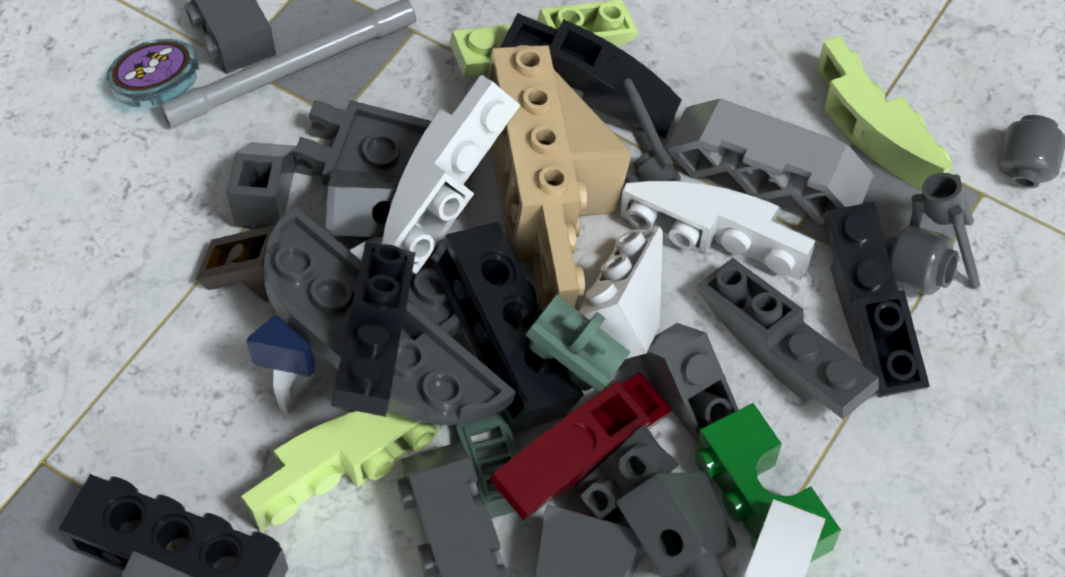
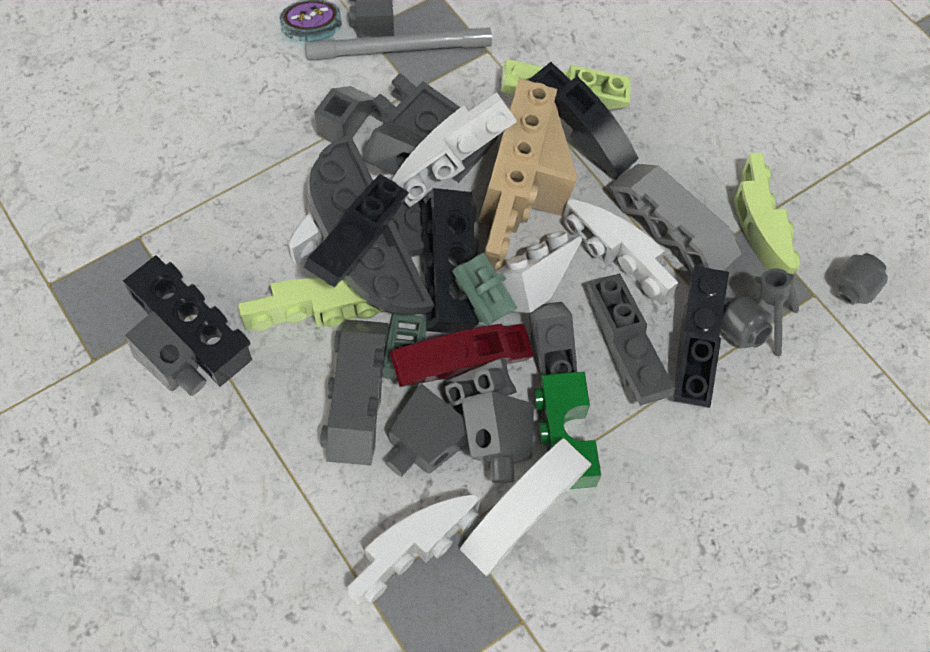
camera: 20 degrees right, 5 degrees up
(237, 260) = (302, 155): dark brown slope -> none
(280, 348) = (299, 220): dark blue slope -> none
(655, 163) = (597, 193): dark grey plant -> none

